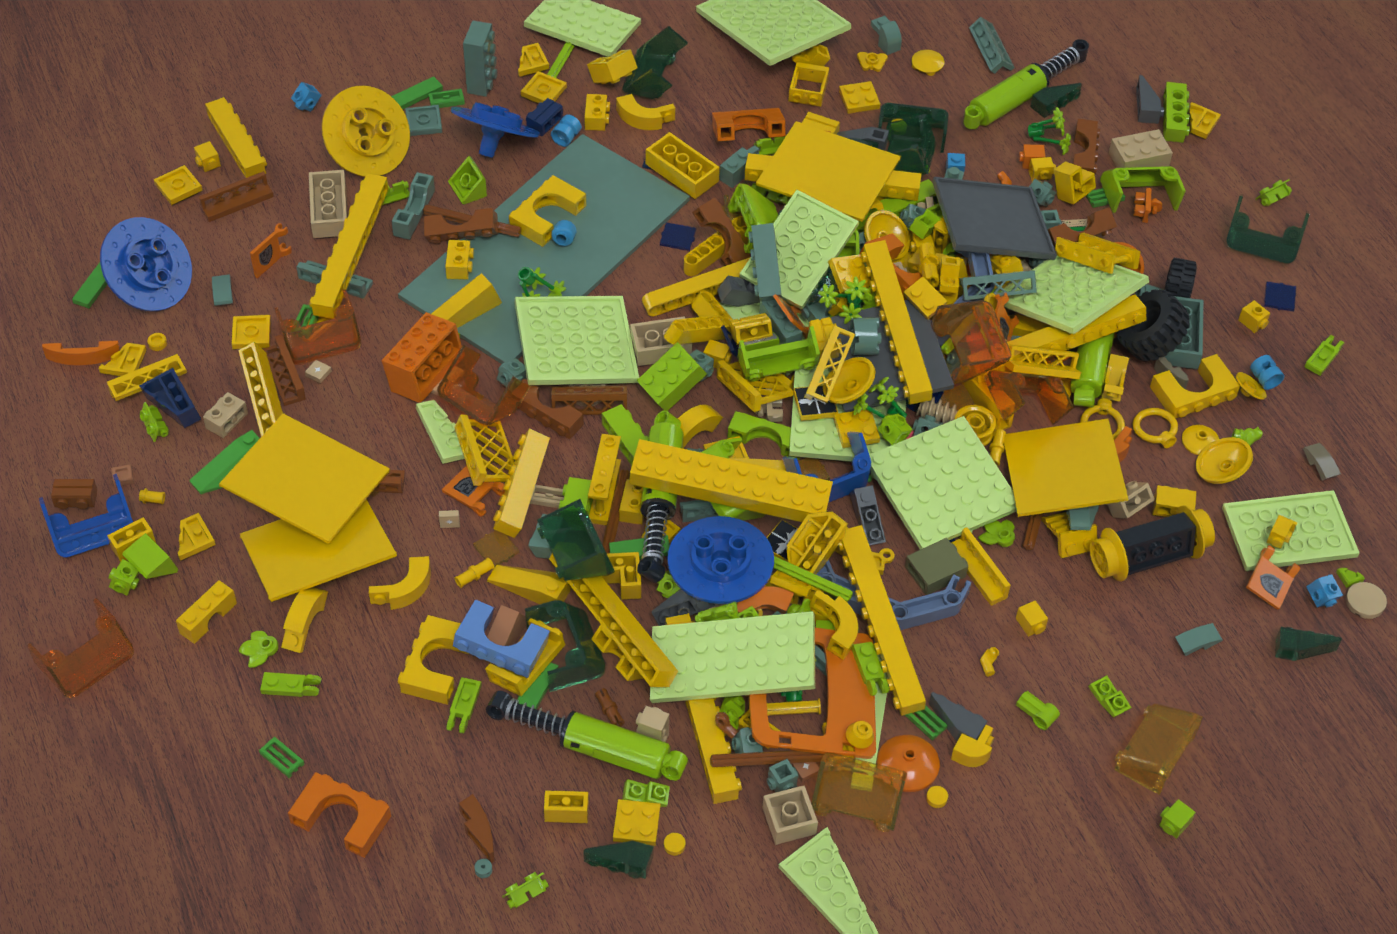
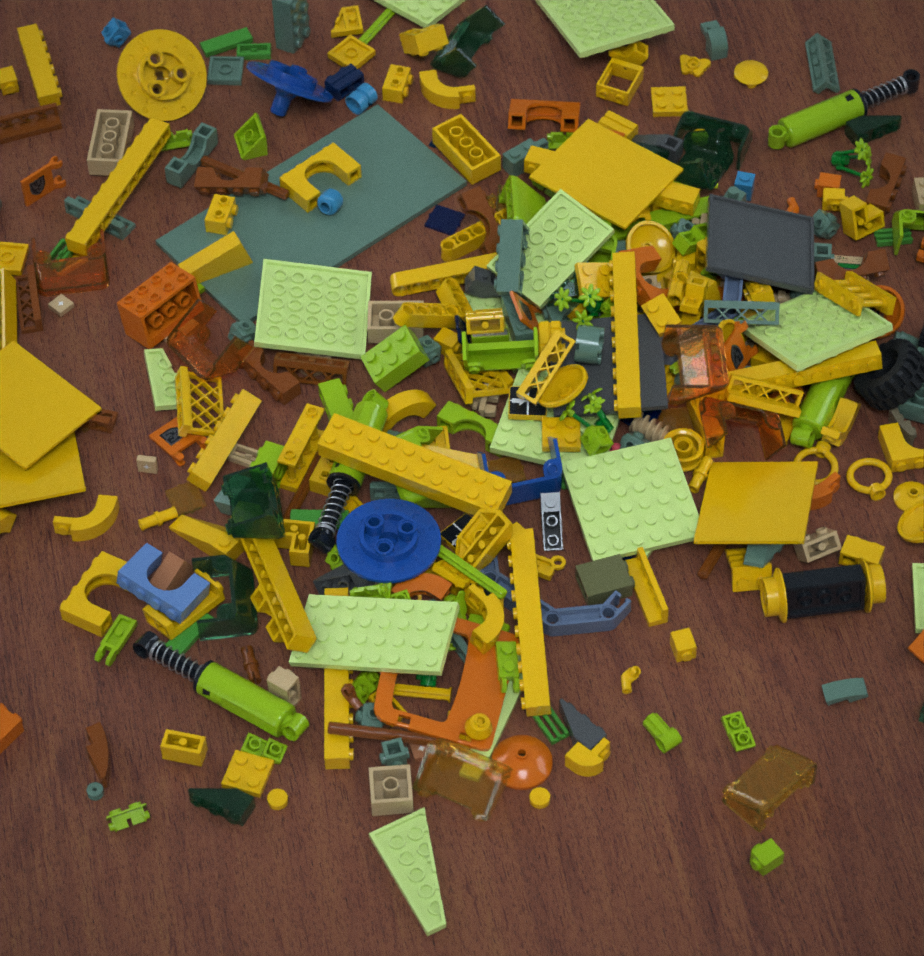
camera: 15 degrees right, 0 degrees up
(529, 277) = (277, 241): plant -> none
(998, 533) = (676, 558): lime plate -> none

